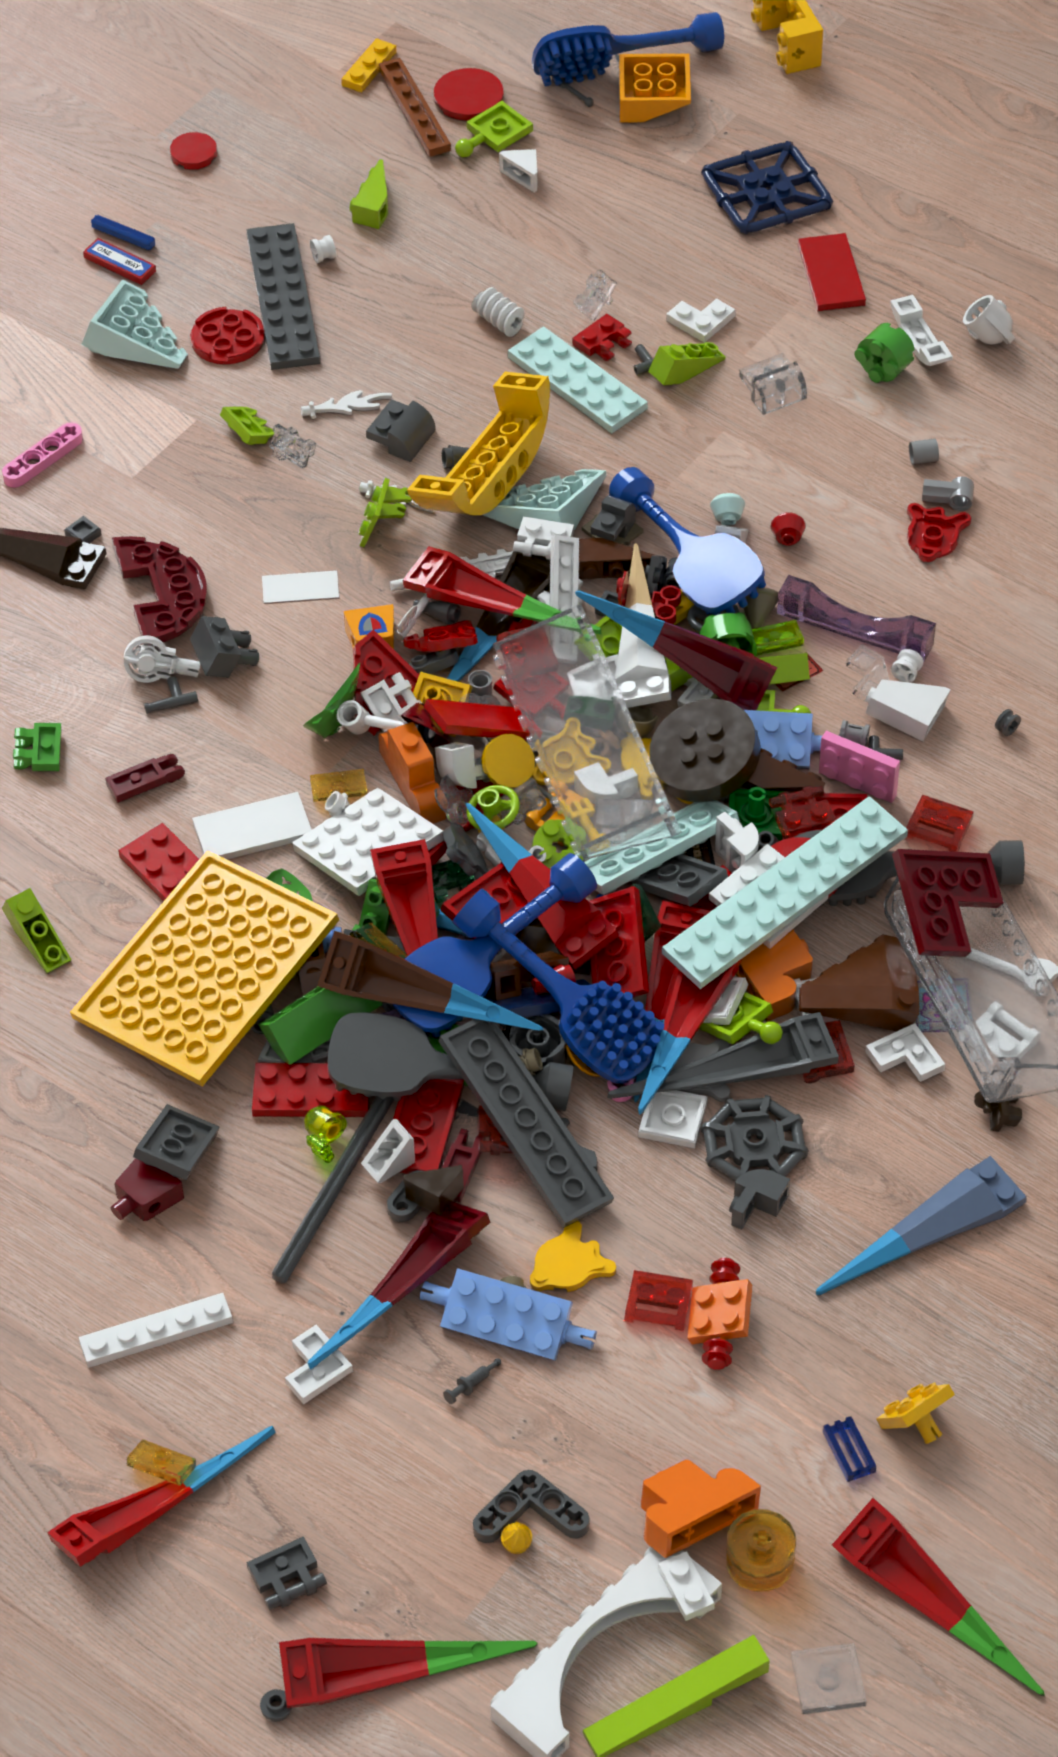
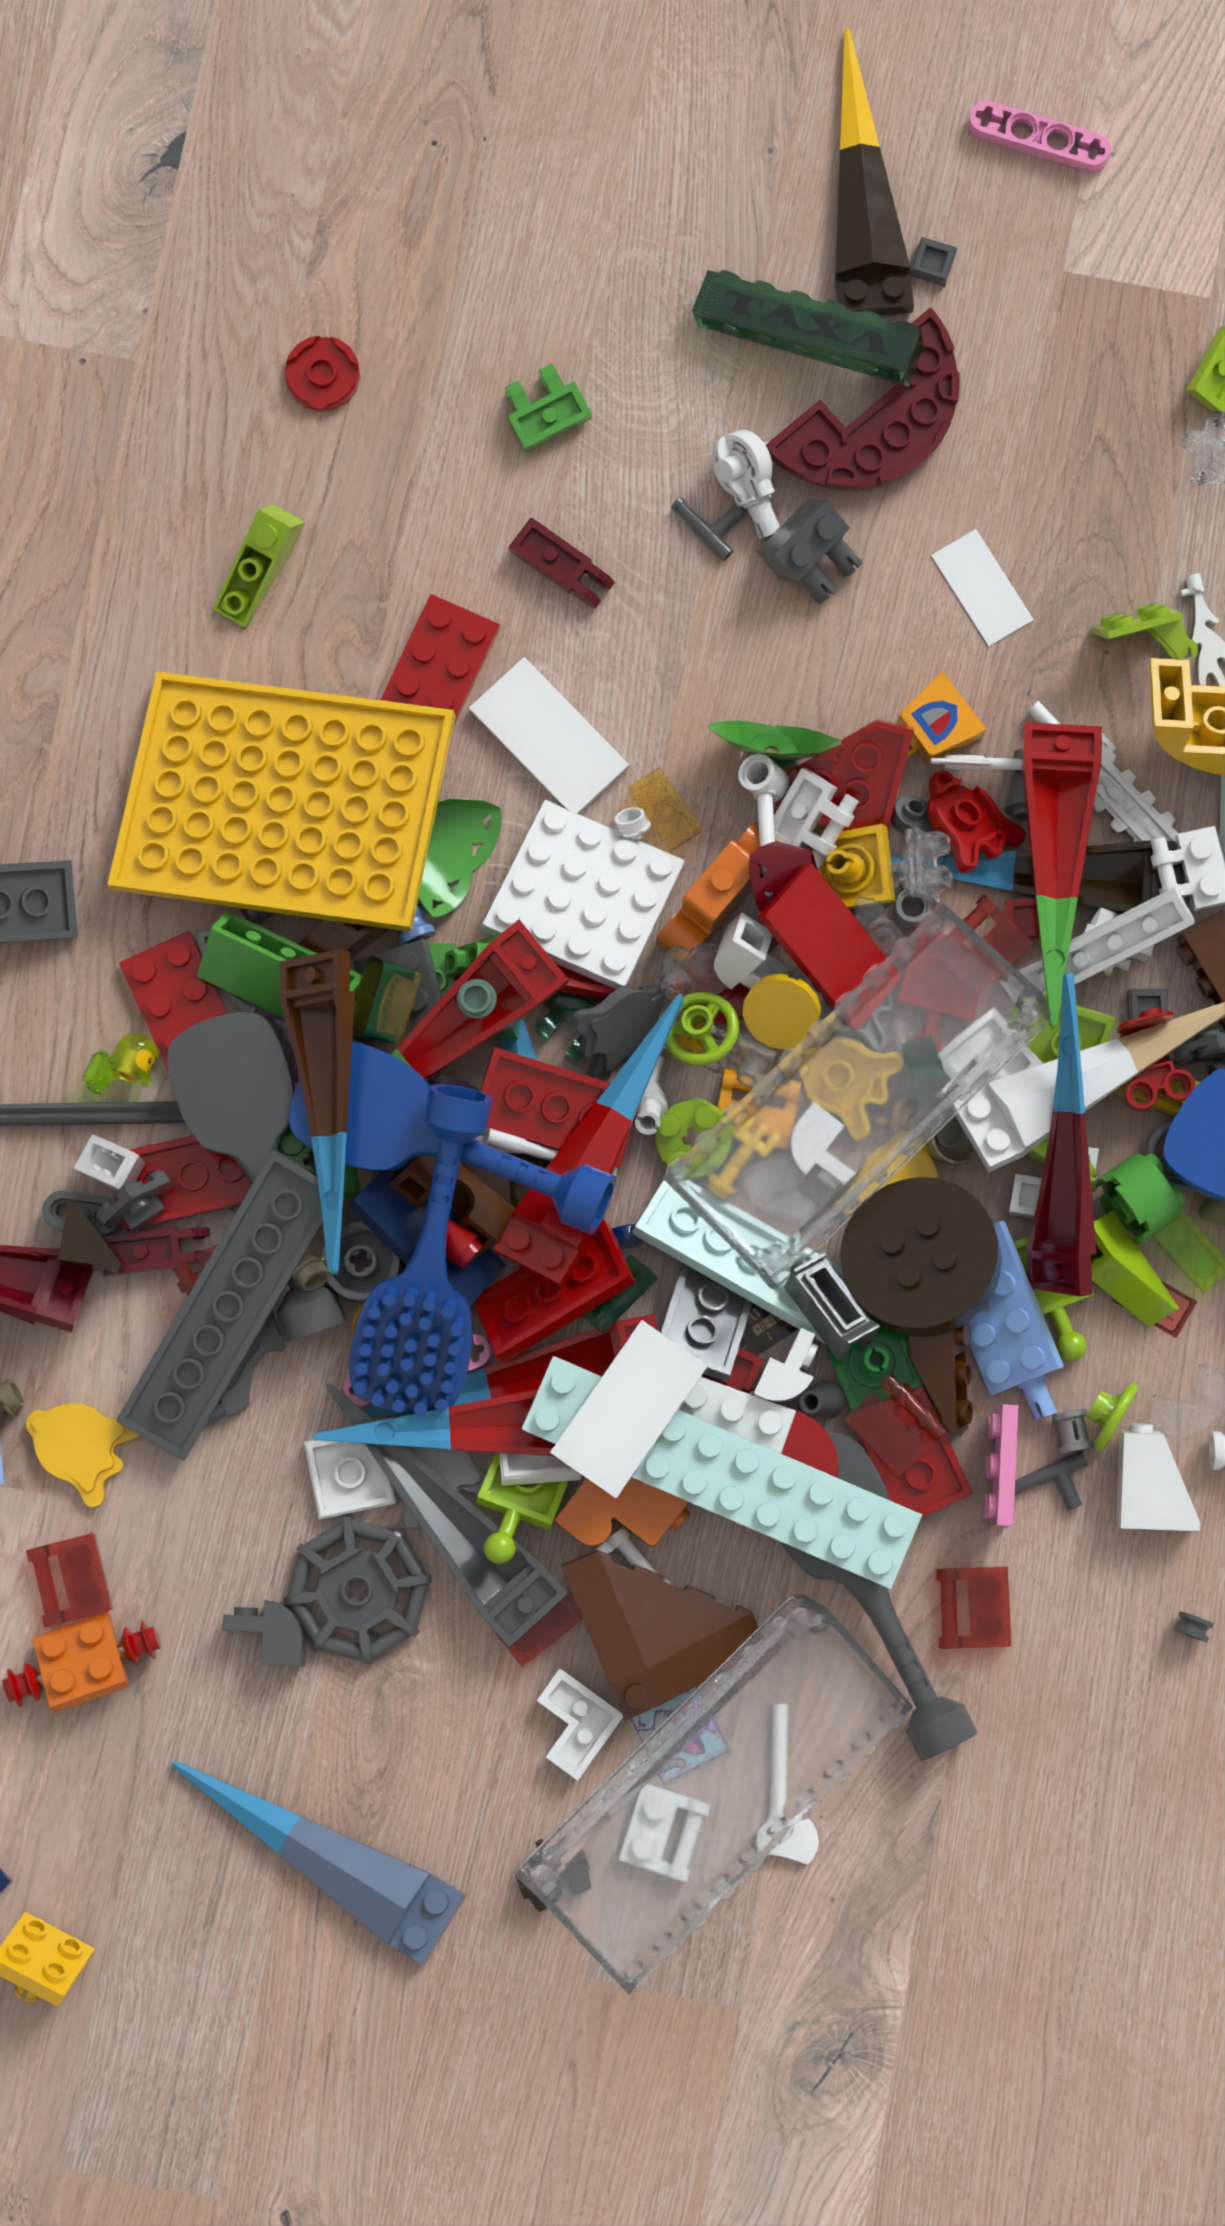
camera: 65 degrees right, 30 degrees up
(84, 593) = (808, 327): none -> clear green brick
(406, 894) = (476, 998): none -> sand green plate
(425, 1146) = (137, 1202): none -> dark grey plate
(471, 658) = (919, 865): none -> clear hips
(704, 805) = (820, 1312): none -> dark grey window
(720, 913) = (629, 1409): none -> white tile
(853, 706) = (1109, 1412): none -> lime piece
(936, 888) = (812, 1660): dark red plate -> none

